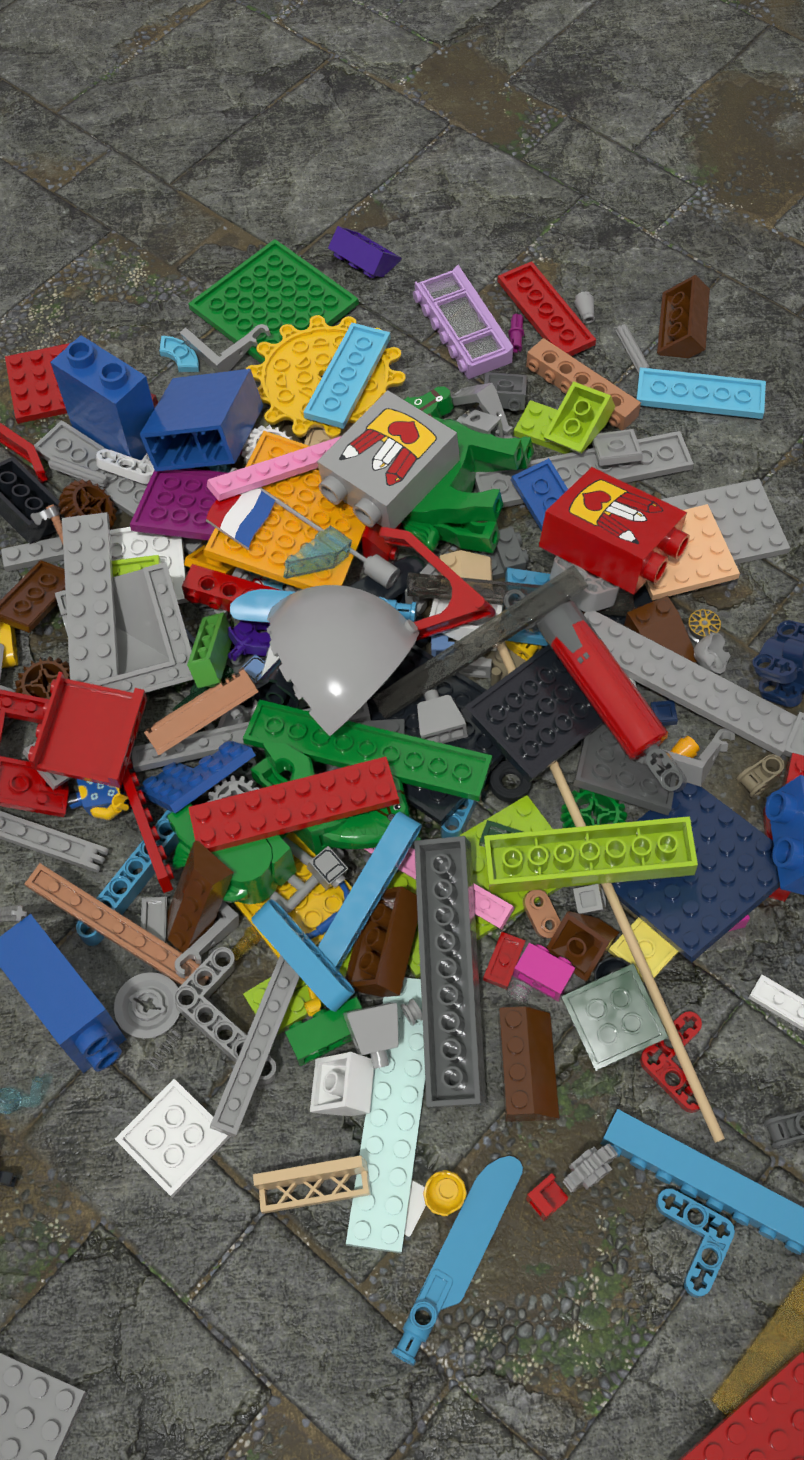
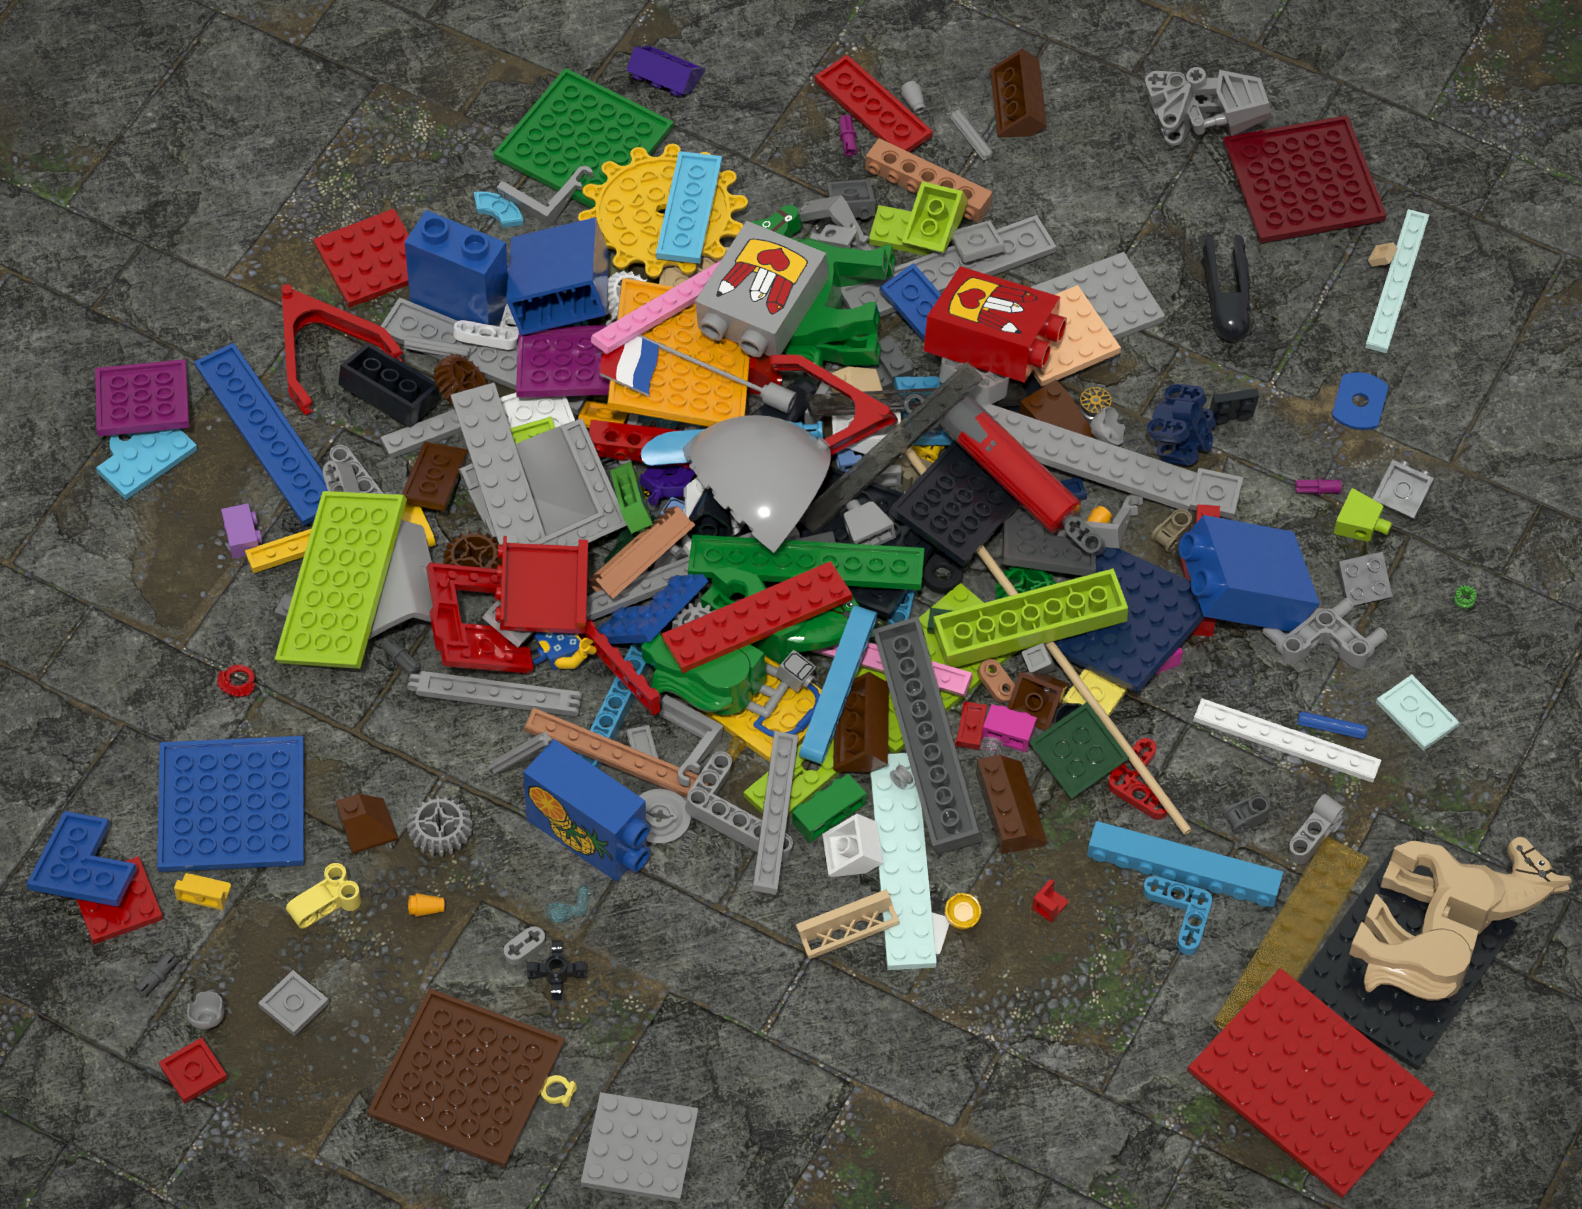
camera: 15 degrees left, 5 degrees down
(50, 513) = (433, 393): flat silver piece -> none
(172, 1138) = (715, 913): white plate -> none
(197, 897) = (685, 712): reddish brown slope -> none
(303, 955) = (794, 743): dark azure beam -> none
(313, 1005) = (811, 786): yellow hand -> none
(320, 554) = (719, 390): clear light blue slope -> none
(374, 1031) = (872, 794): light grey torso -> none
(461, 1250) = (986, 954): dark azure piece -> none
(463, 323) = (790, 132): lavender window -> none
(590, 1168) = (1082, 868): light grey gear -> none
(701, 393) = (1050, 172): medium azure plate -> none

